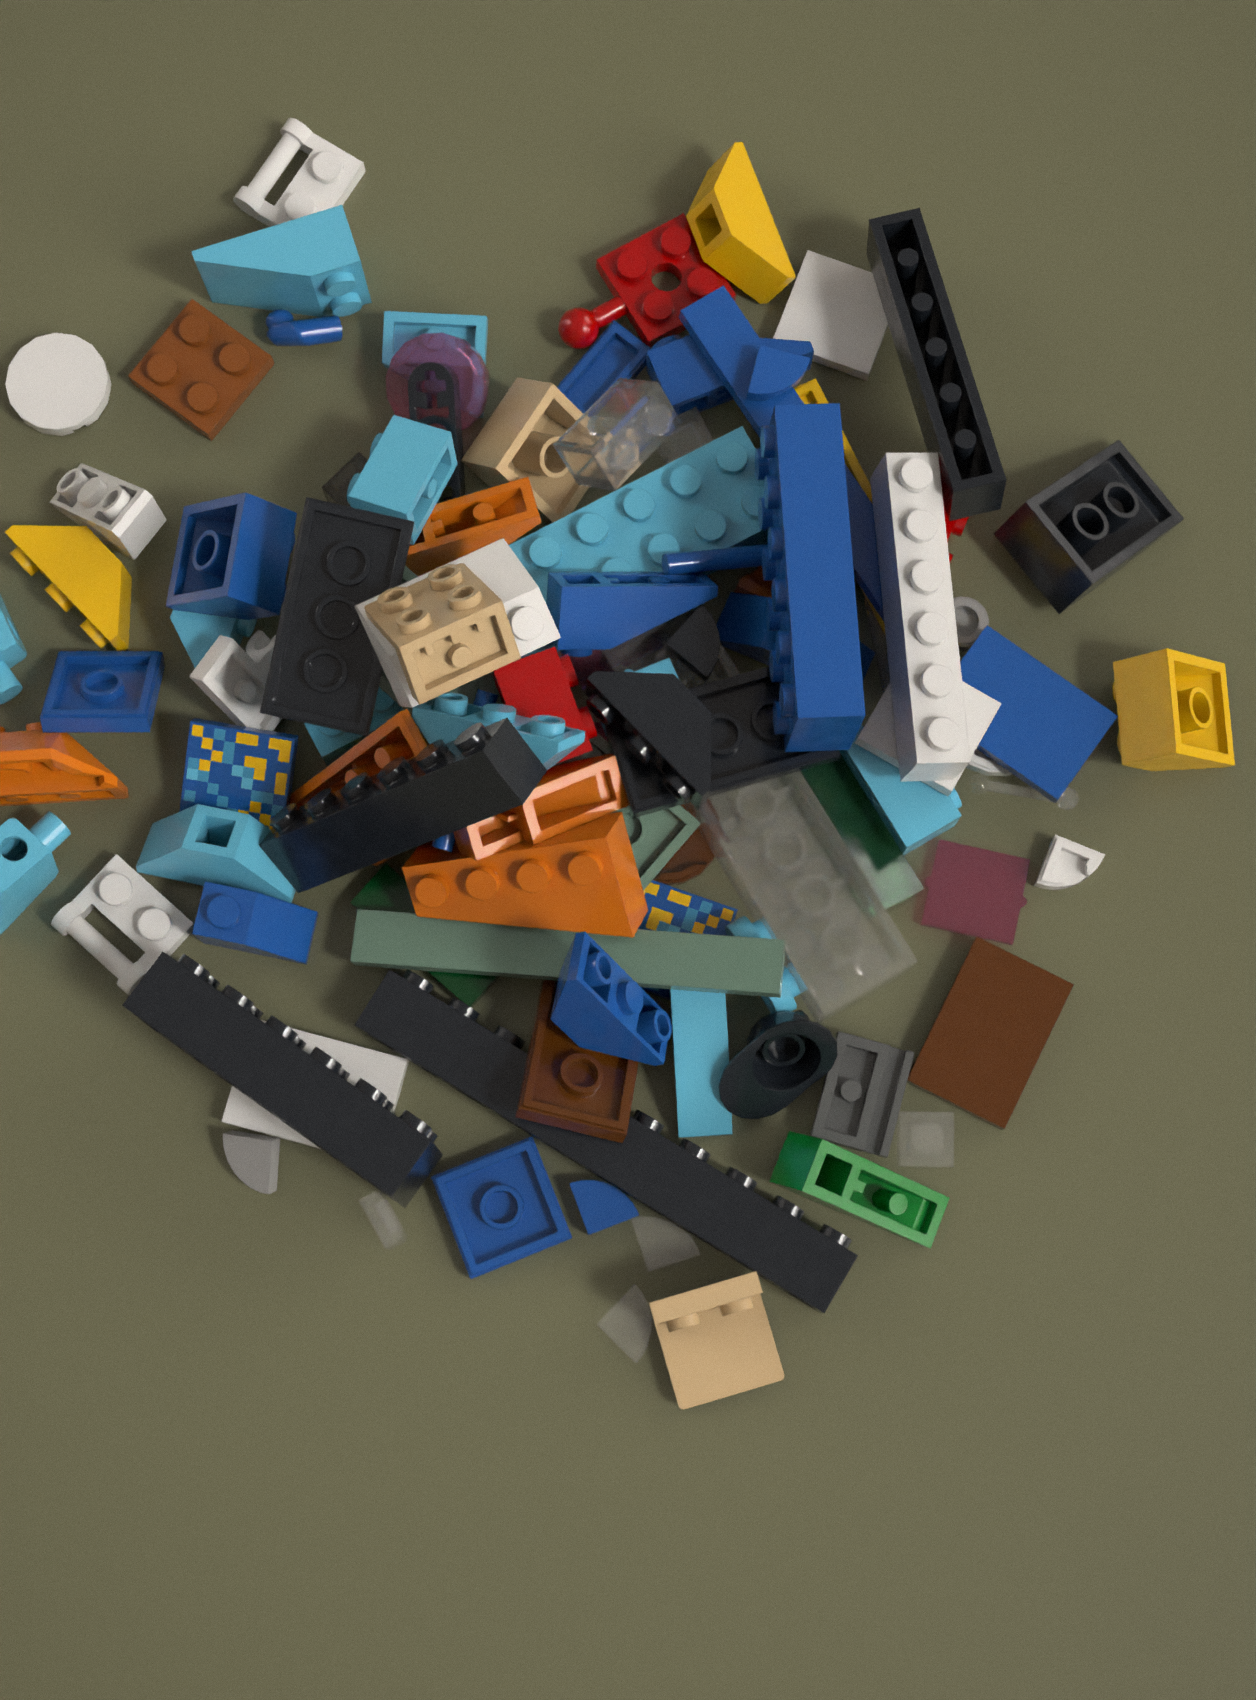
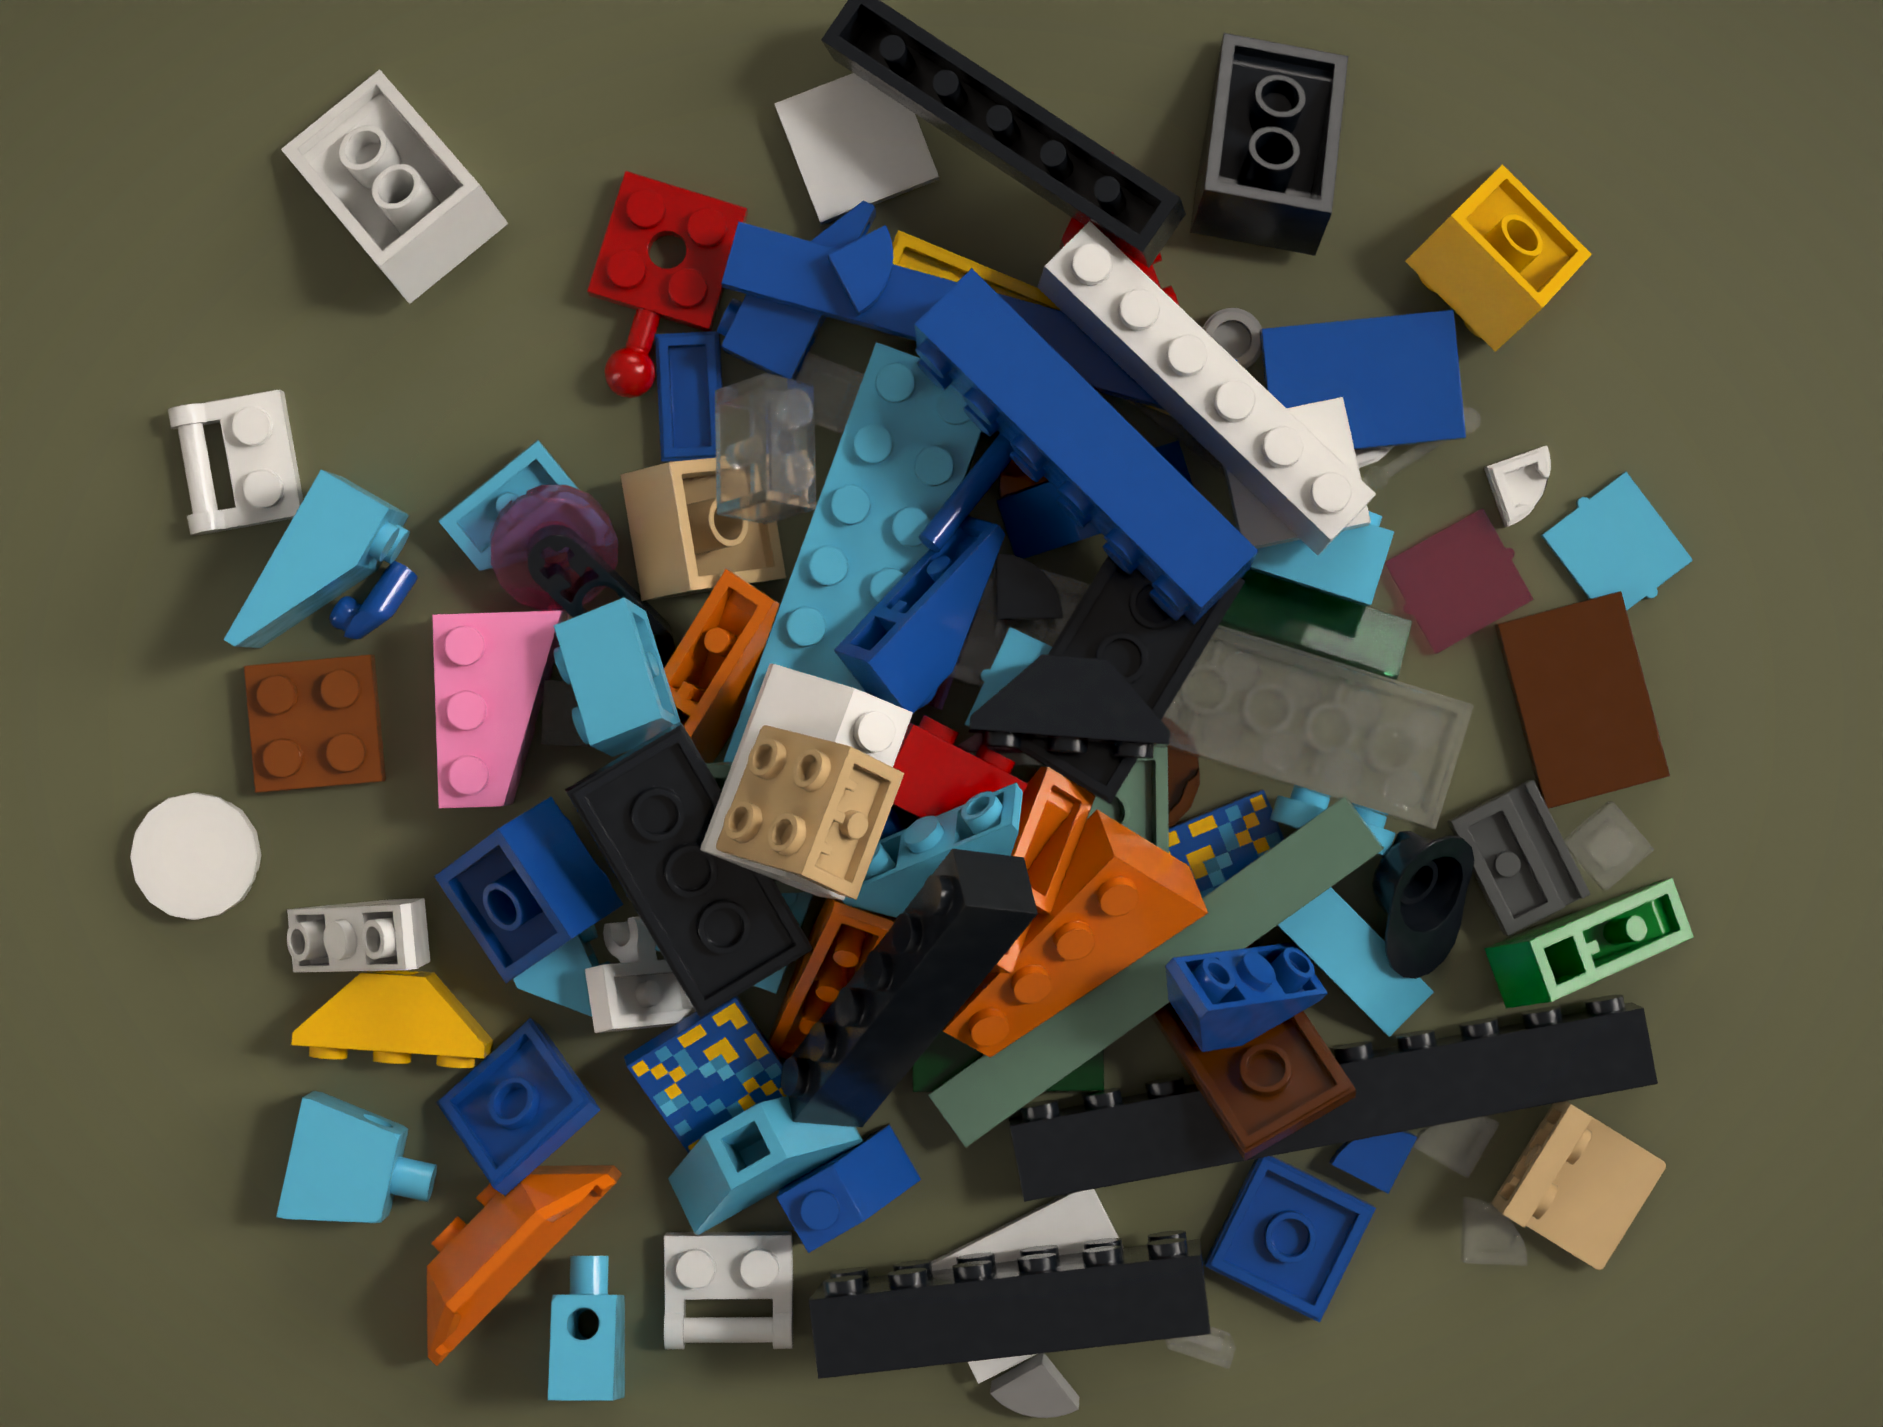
camera: 40 degrees left, 10 degrees up
(311, 437) = (488, 700): none -> bright pink wedge
(538, 109) = (395, 186): none -> white slope
(737, 228) = (689, 141): yellow slope -> none
(1097, 956) = (1617, 544): none -> medium azure piece

